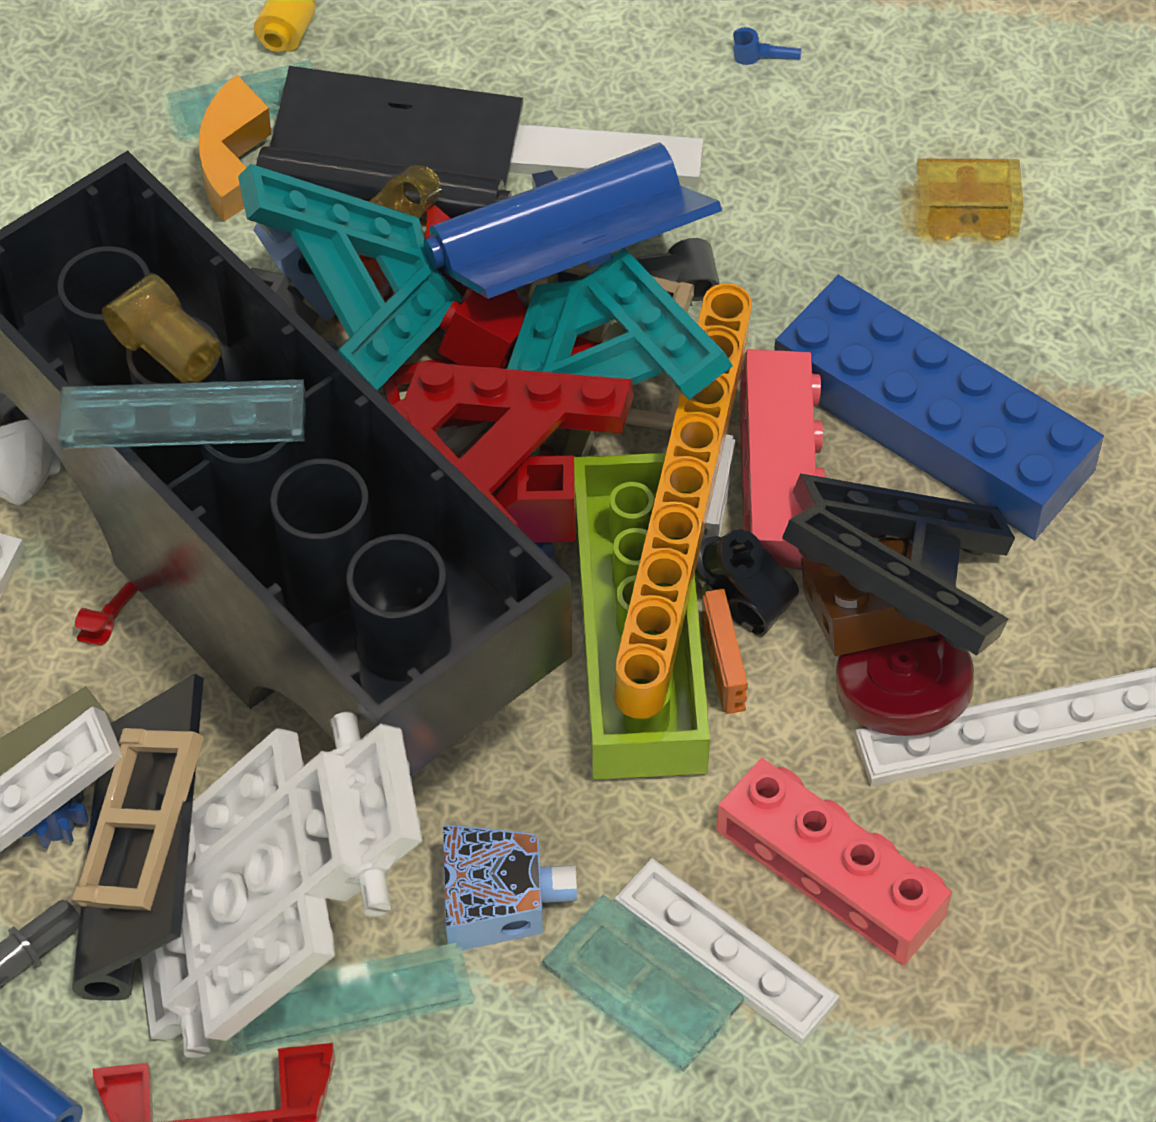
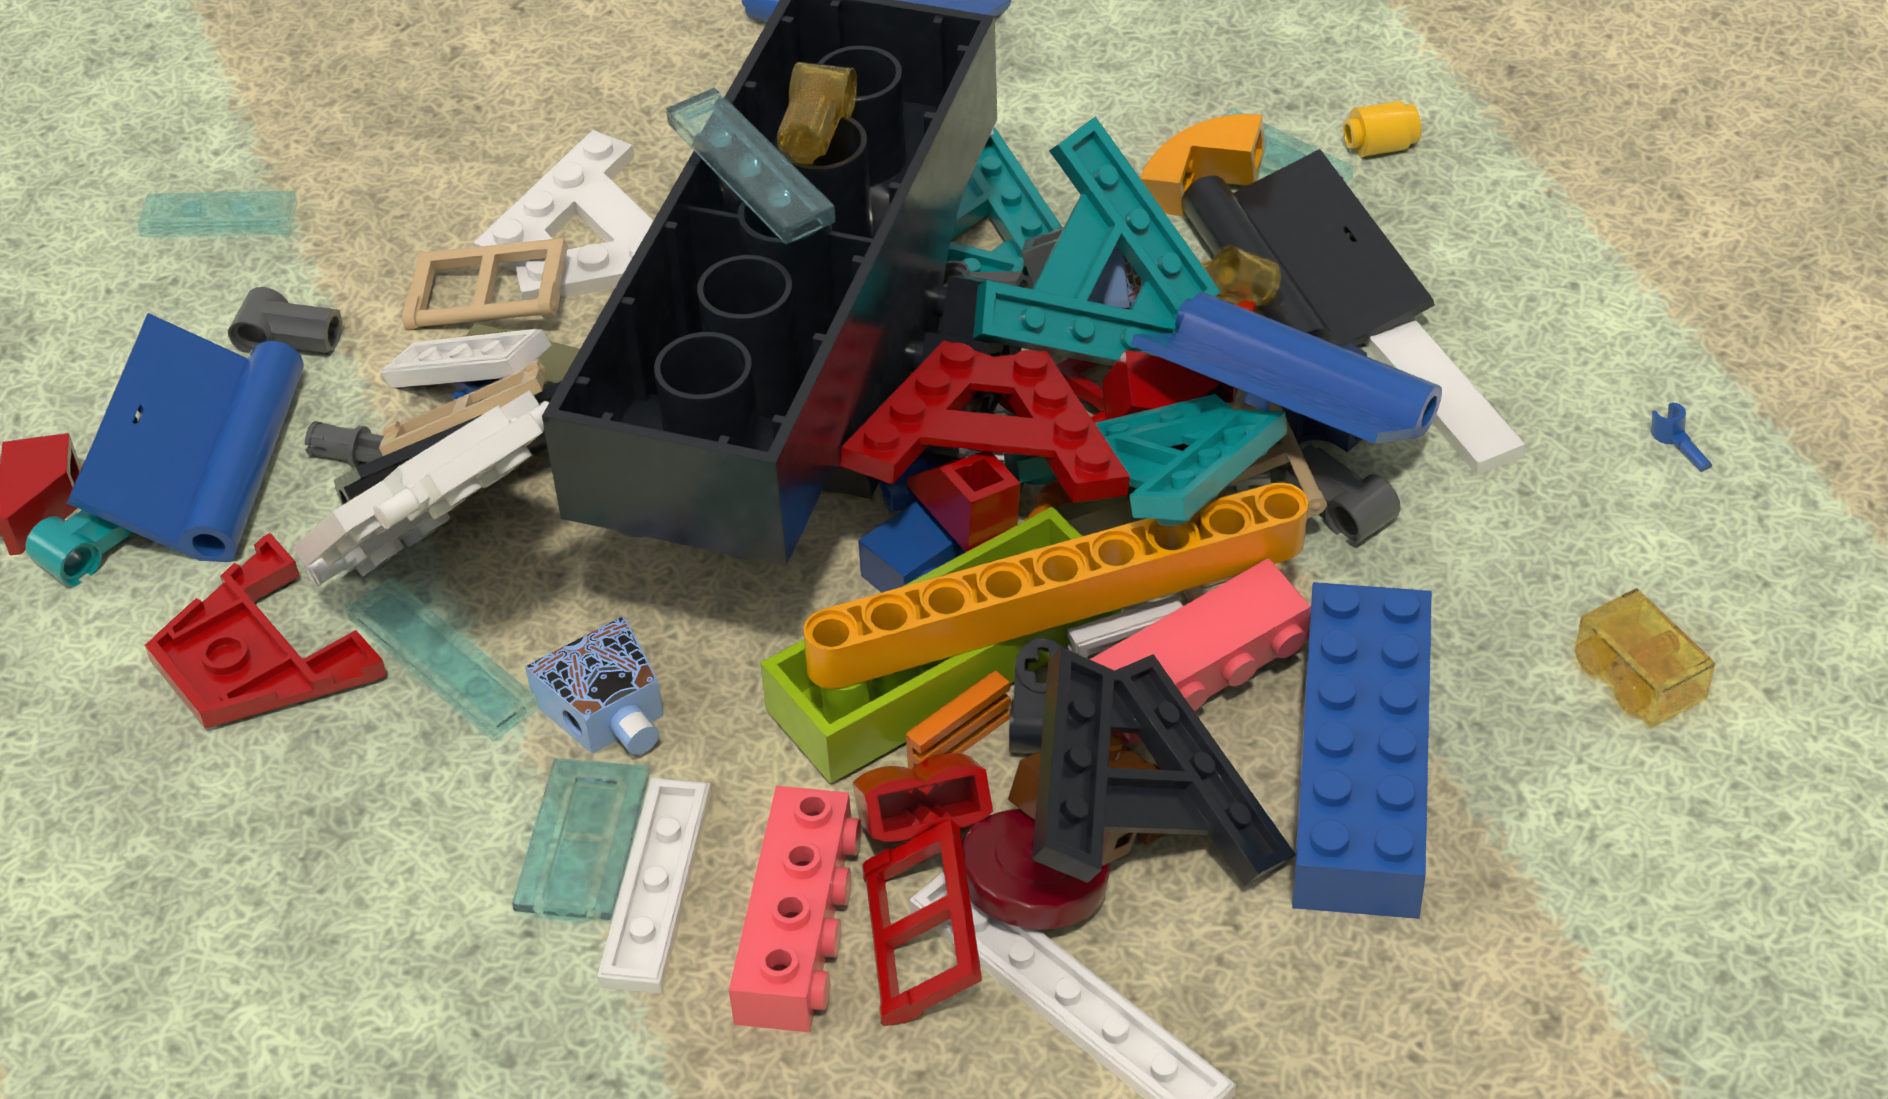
camera: 60 degrees right, 10 degrees down
(791, 710) = (906, 802): none -> red brick
(895, 818) = (956, 905): none -> red window

